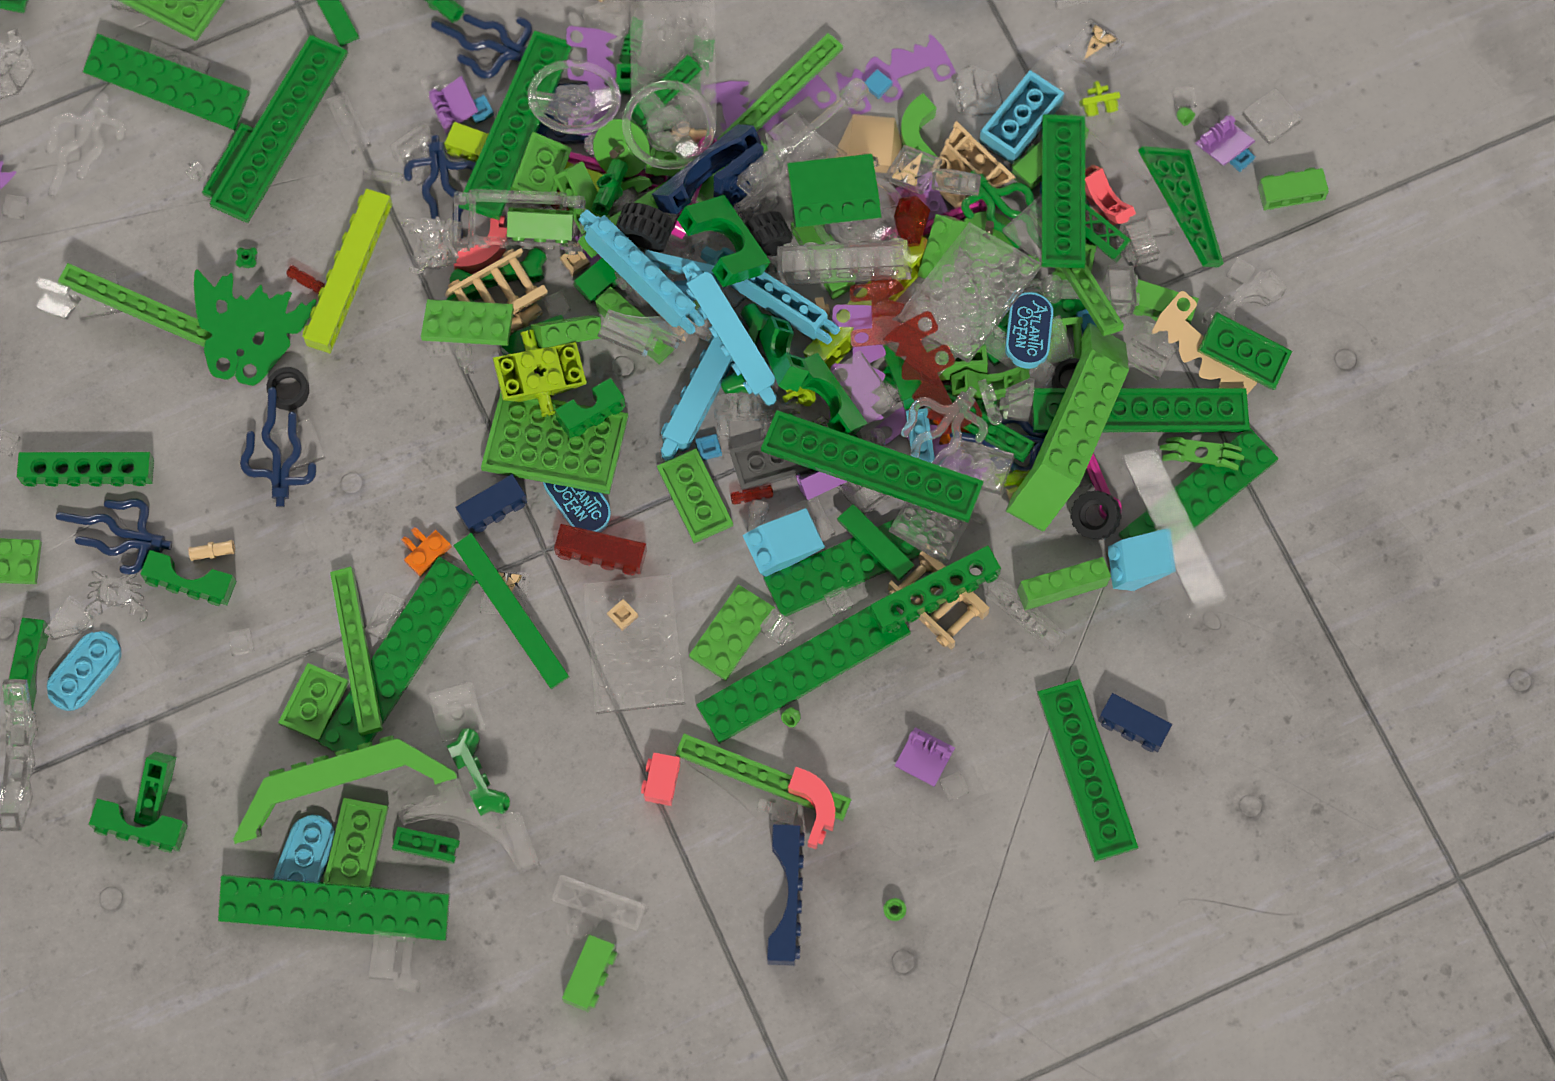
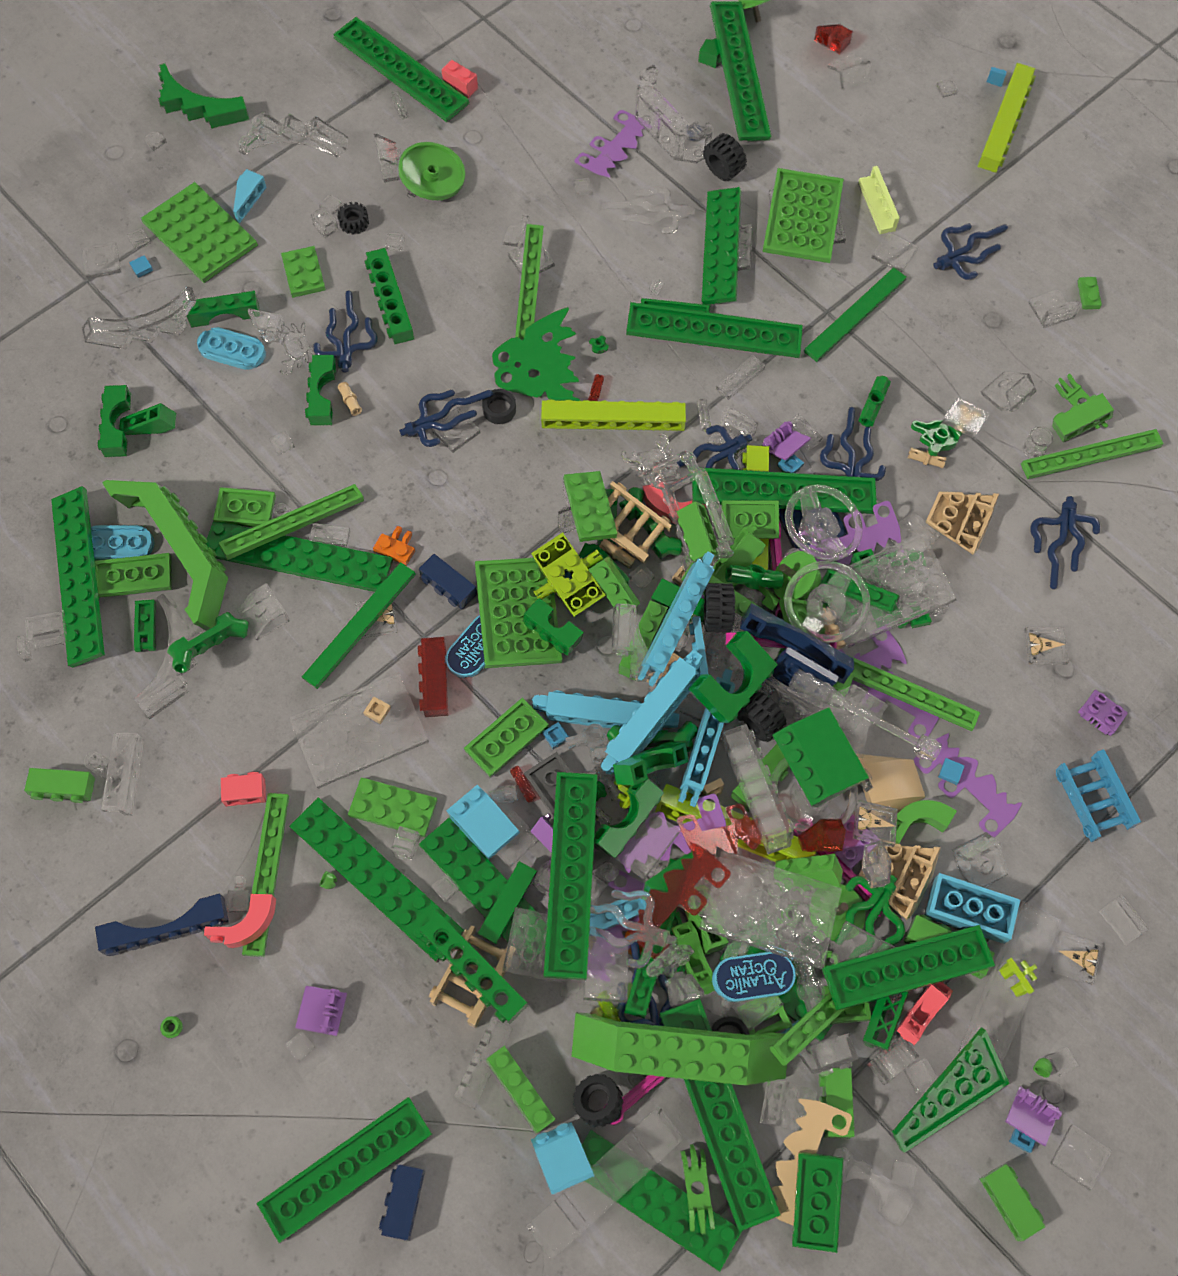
camera: 70 degrees right, 5 degrees down
(50, 34) = (724, 157): none -> black tyre

